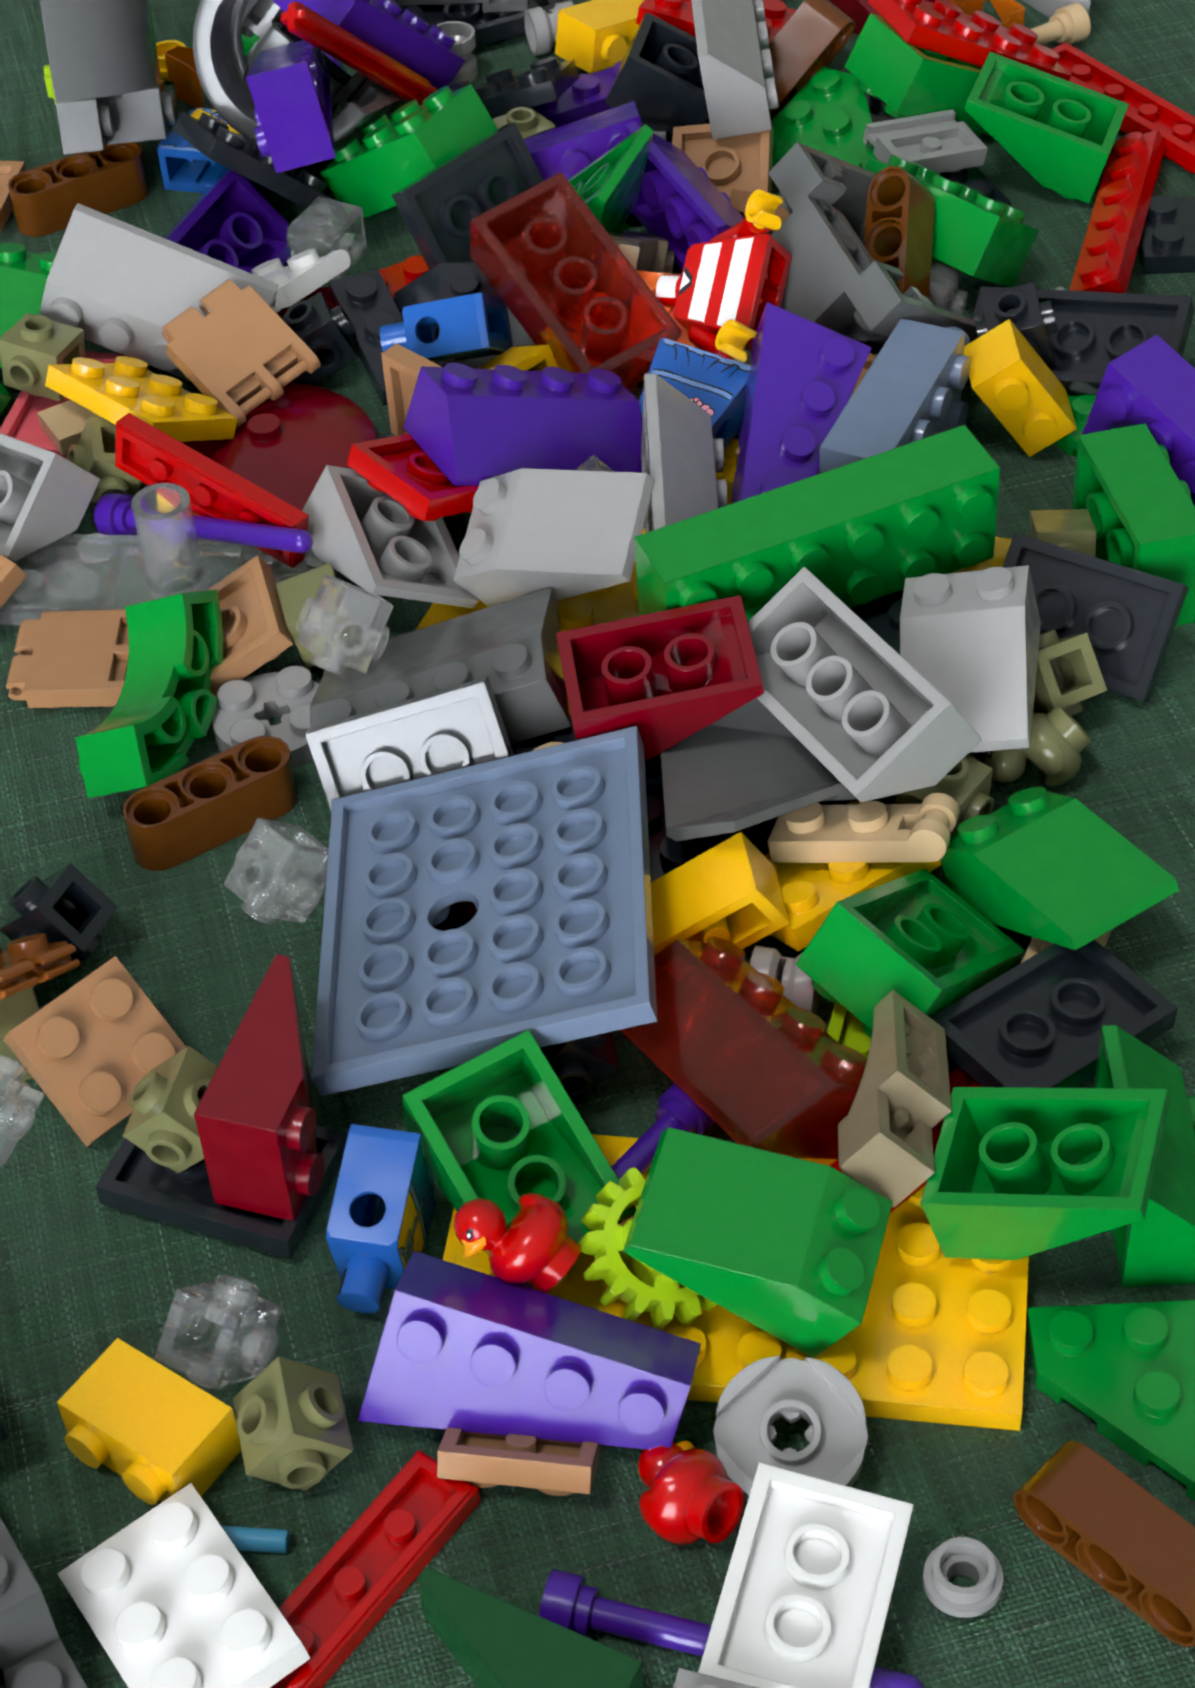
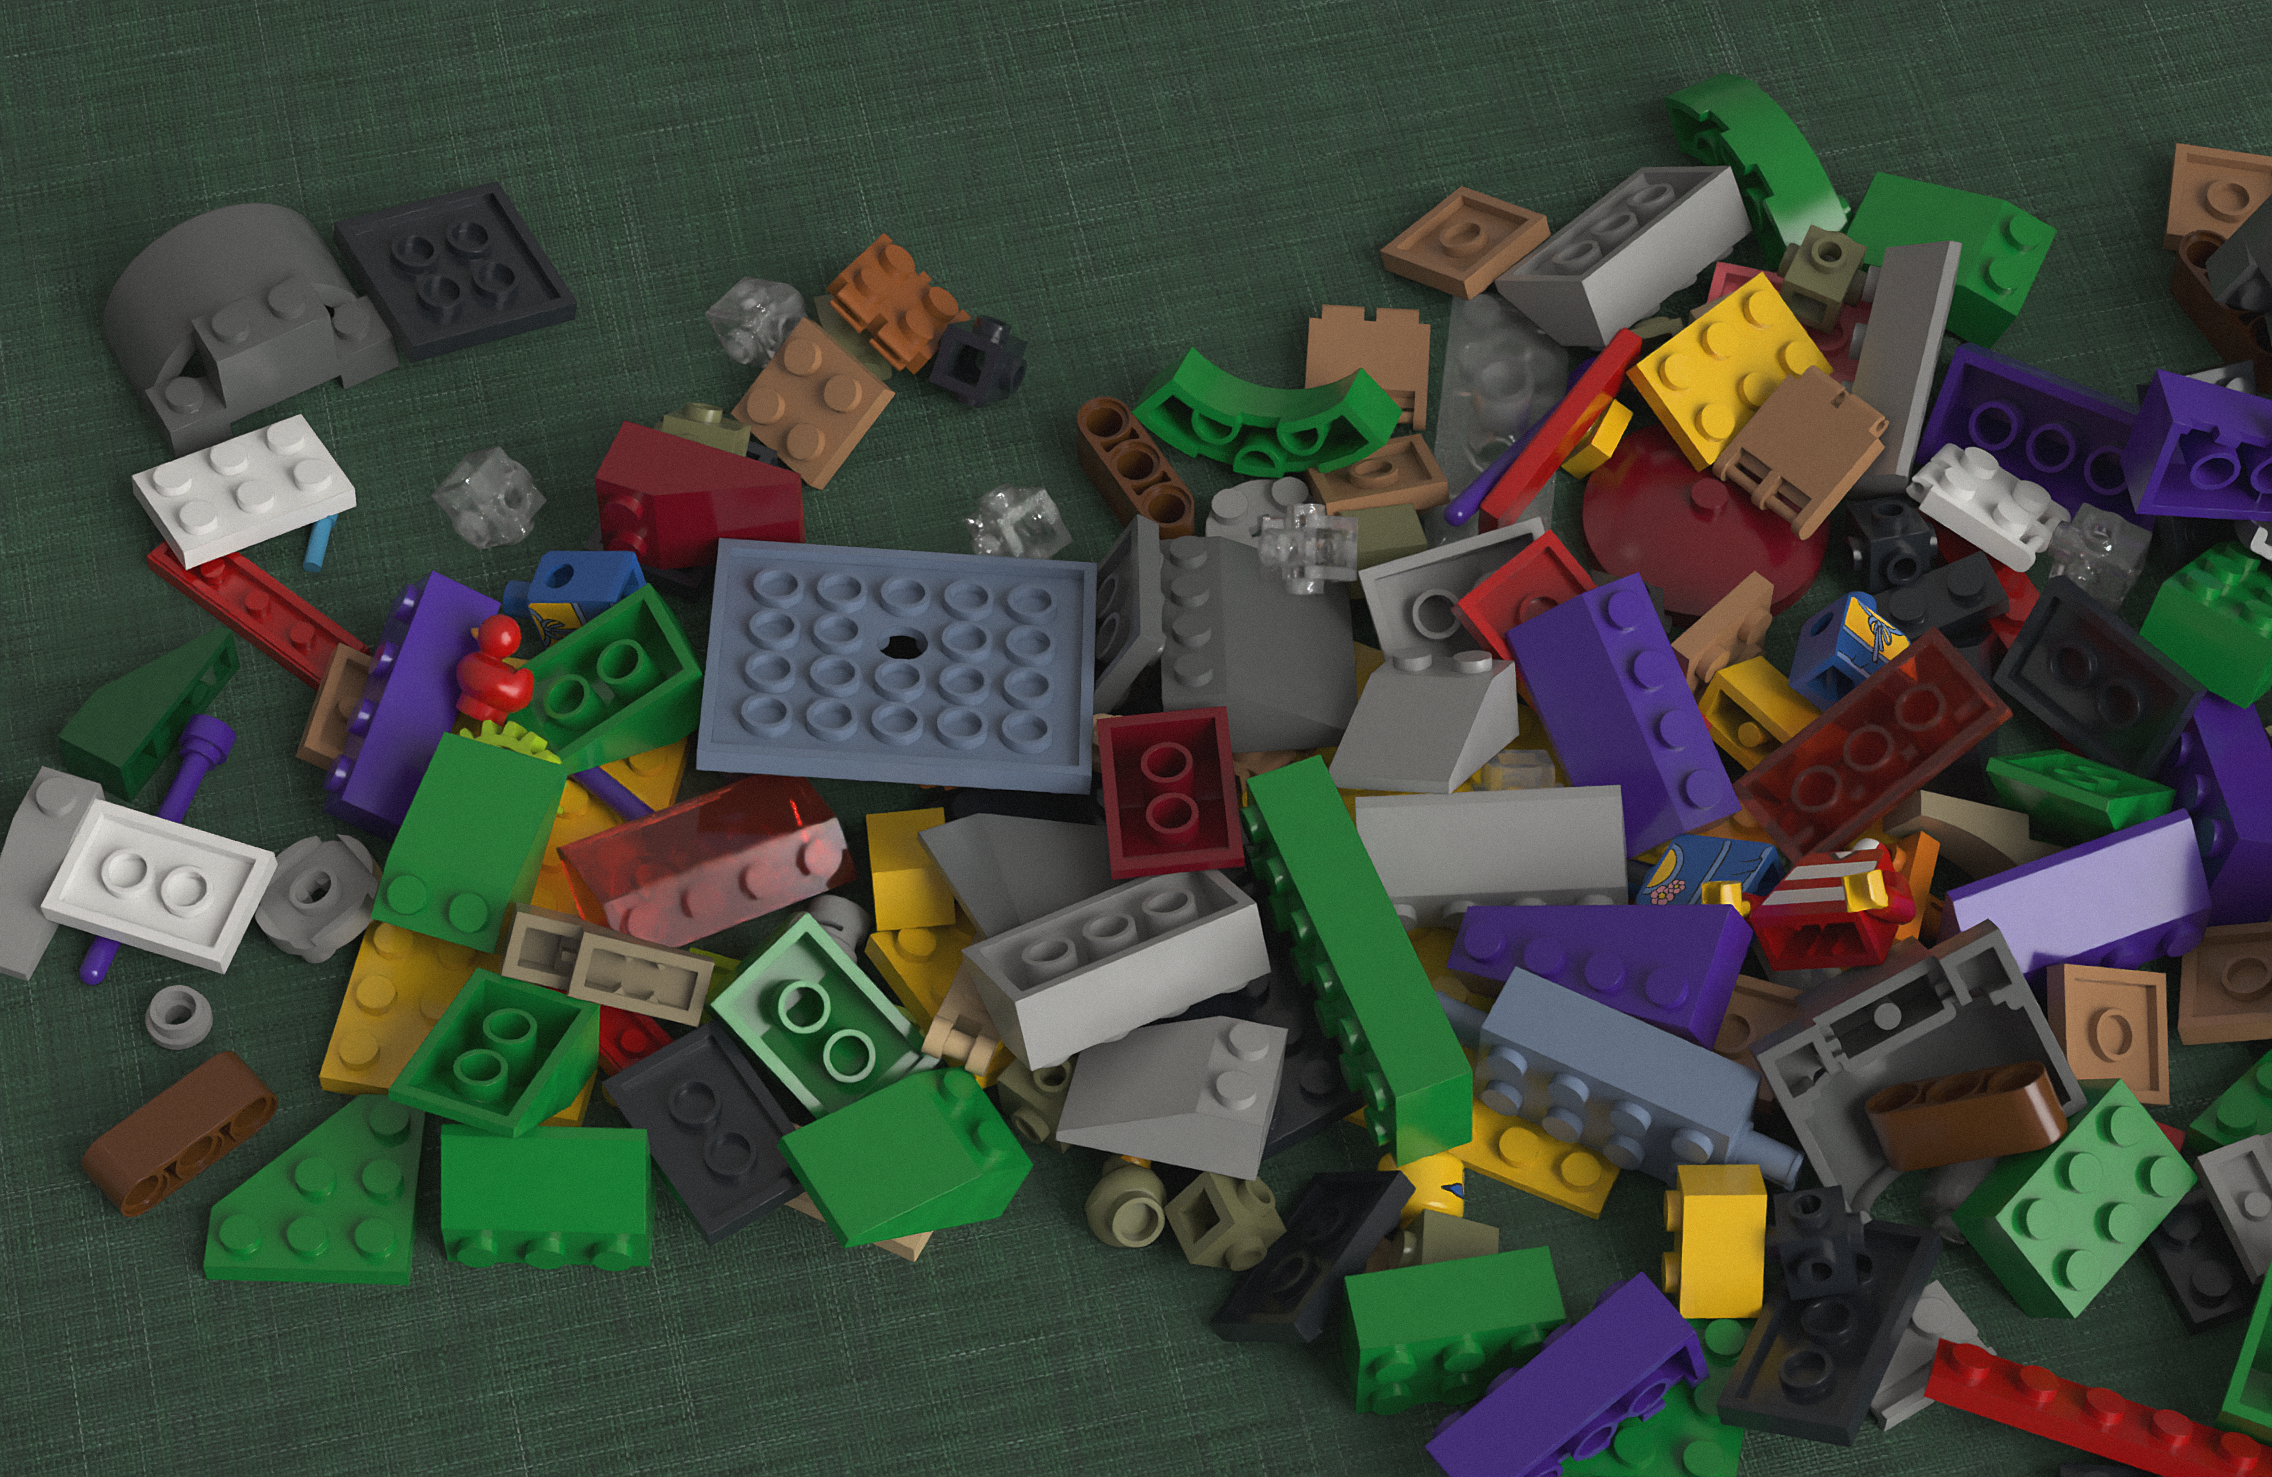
camera: 90 degrees right, 10 degrees up
(148, 1425) = (412, 459): yellow brick -> none
(292, 1424) = (388, 528): olive brick -> none
(688, 1494) = (277, 820): red animal -> none

